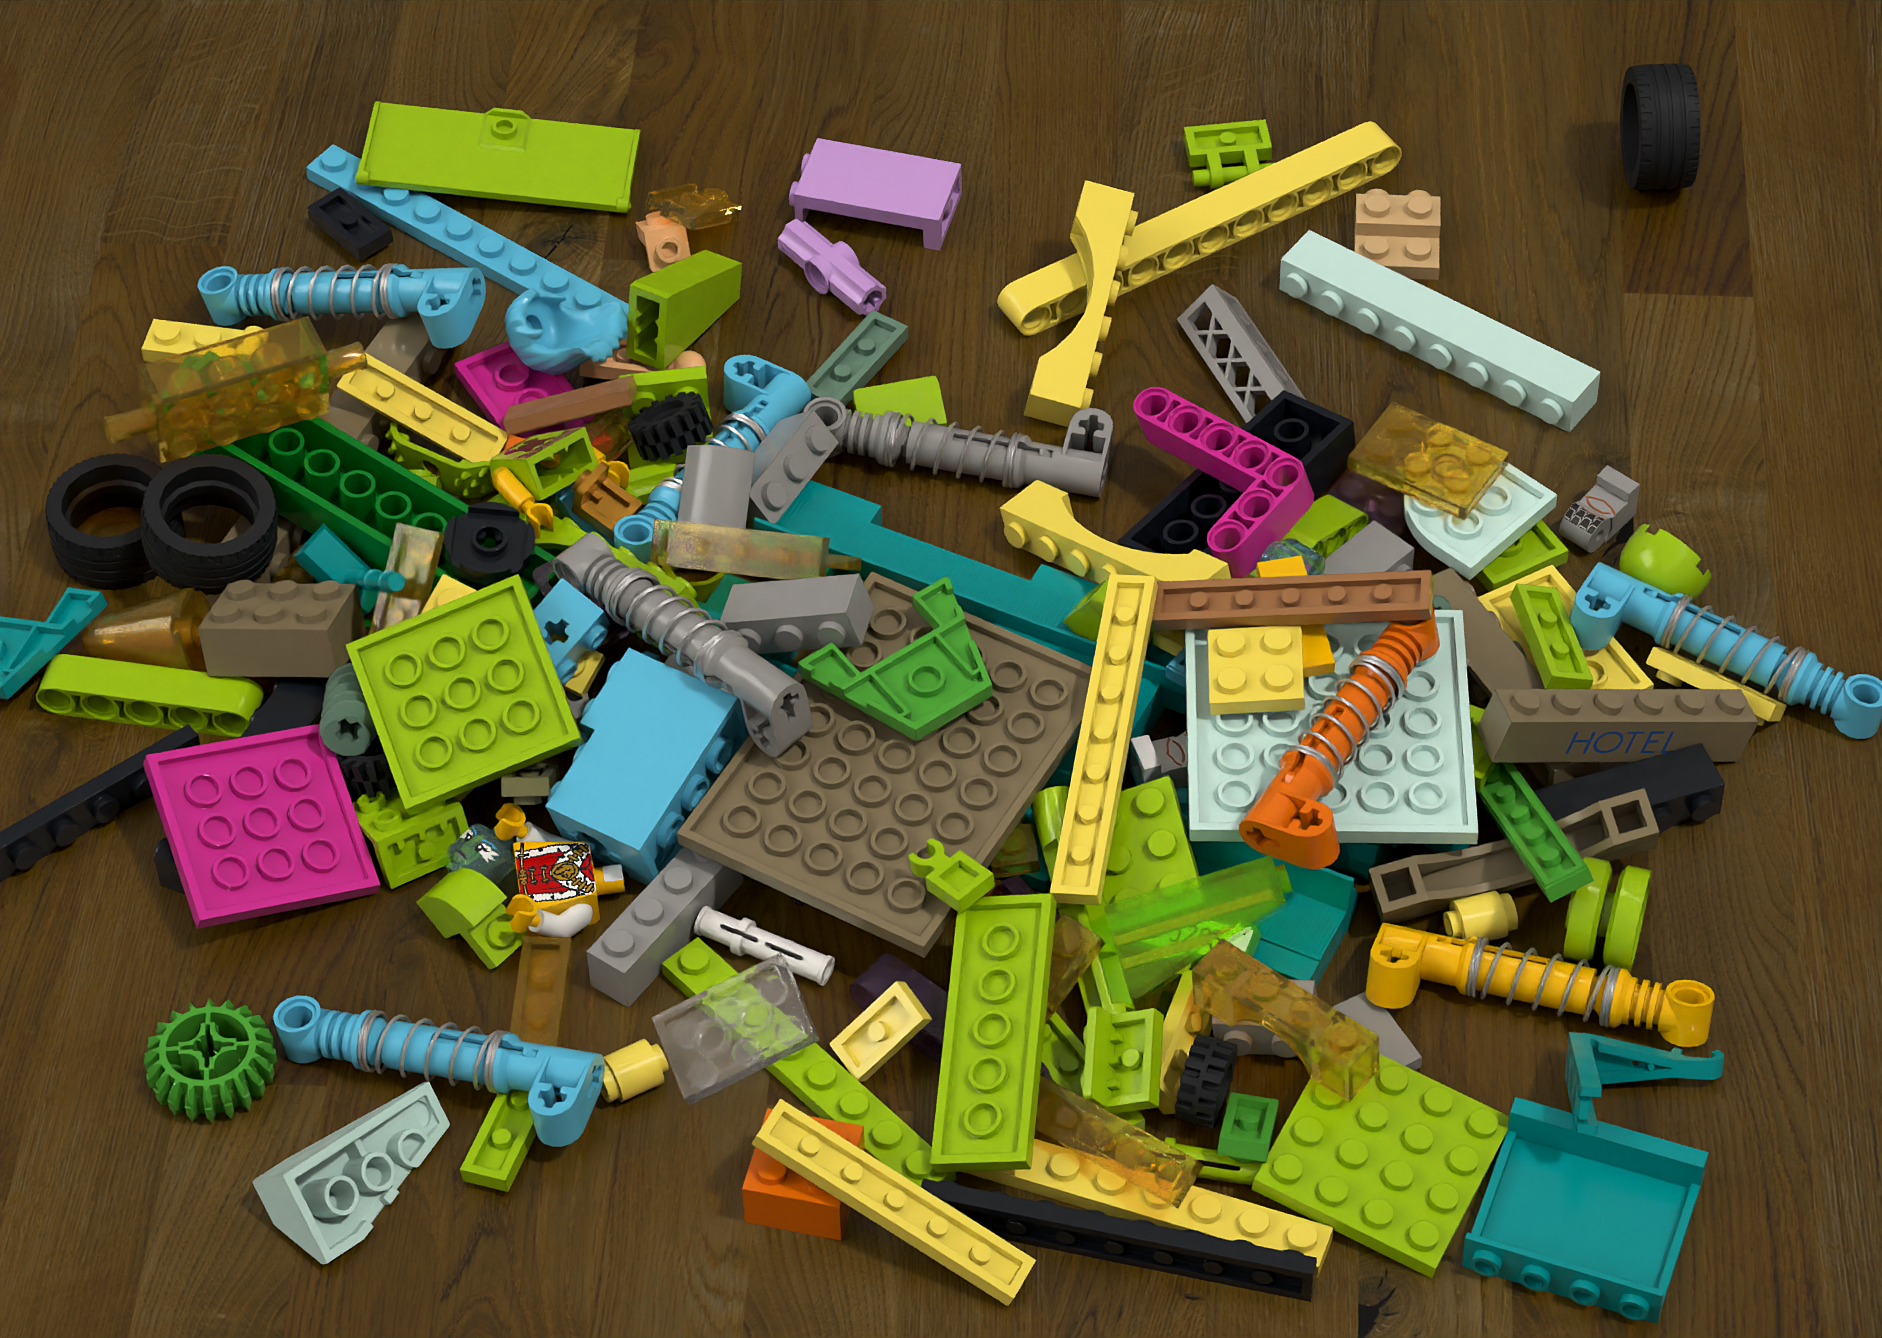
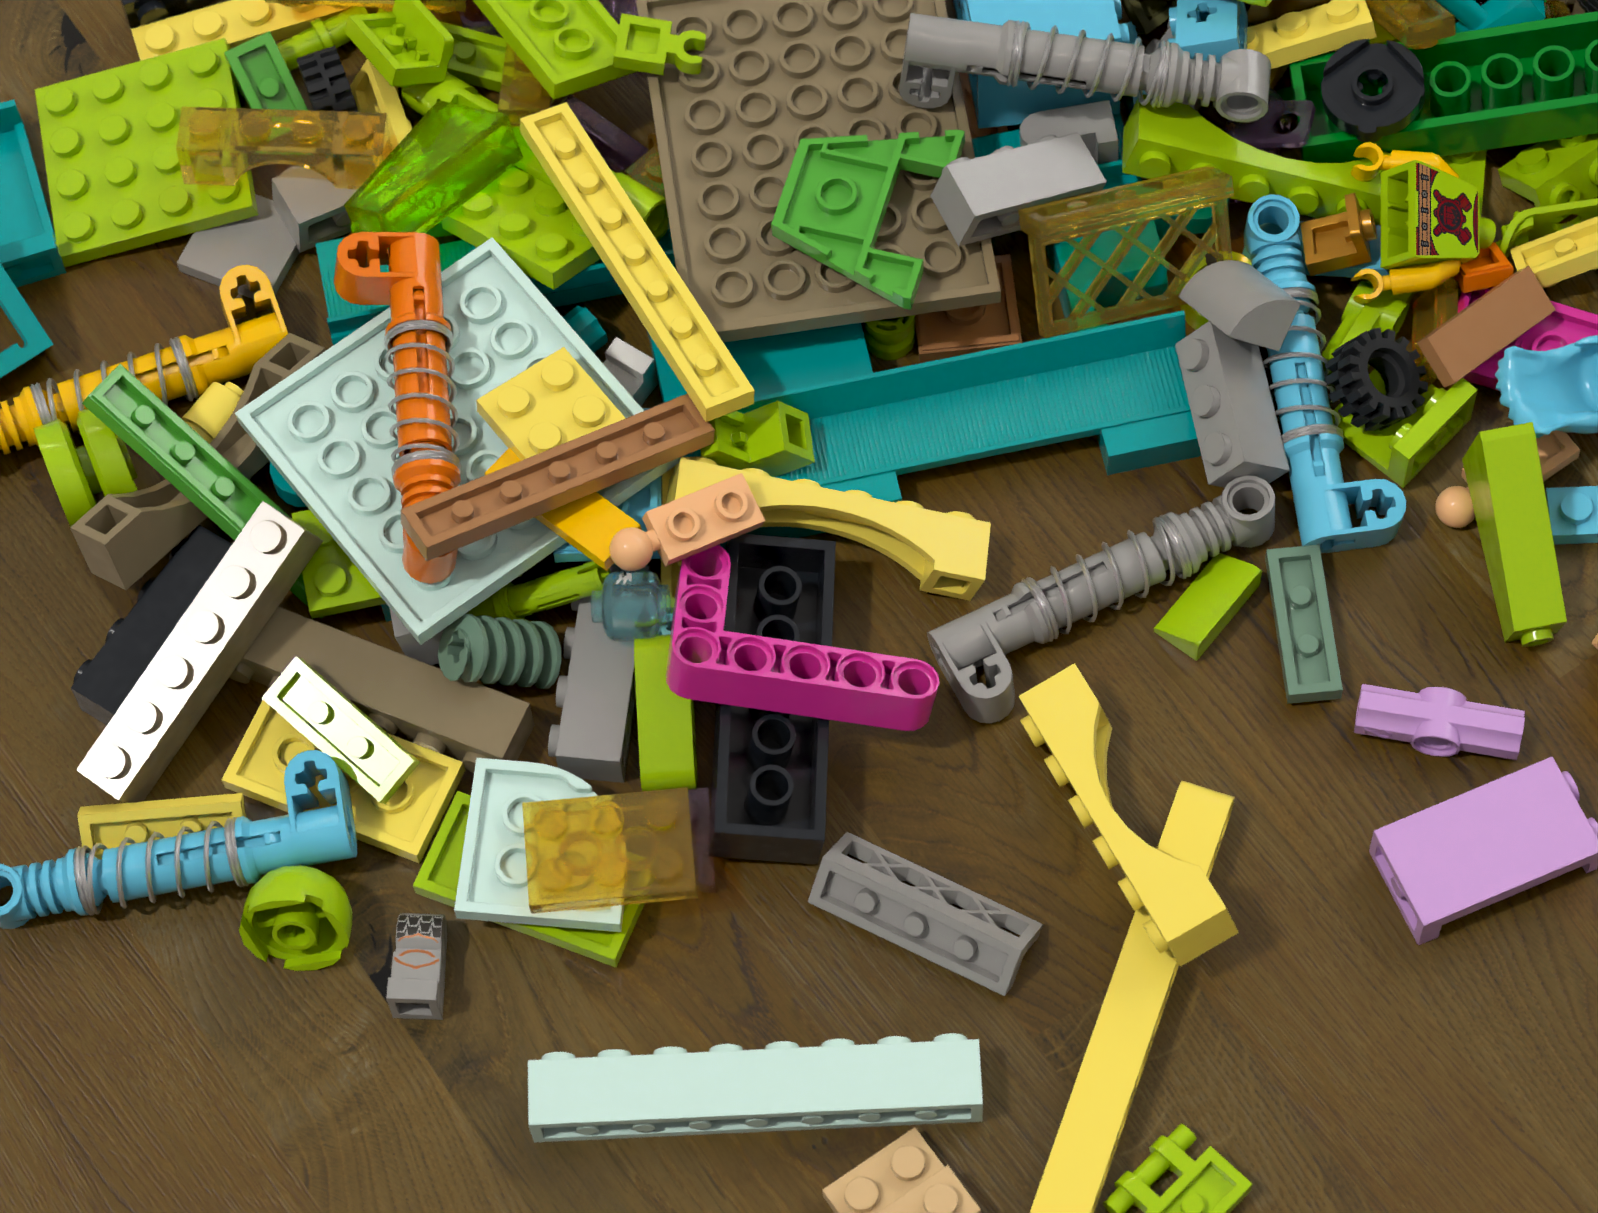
camera: 145 degrees right, 15 degrees up
(1224, 546) = (689, 525): none -> light nougat plate

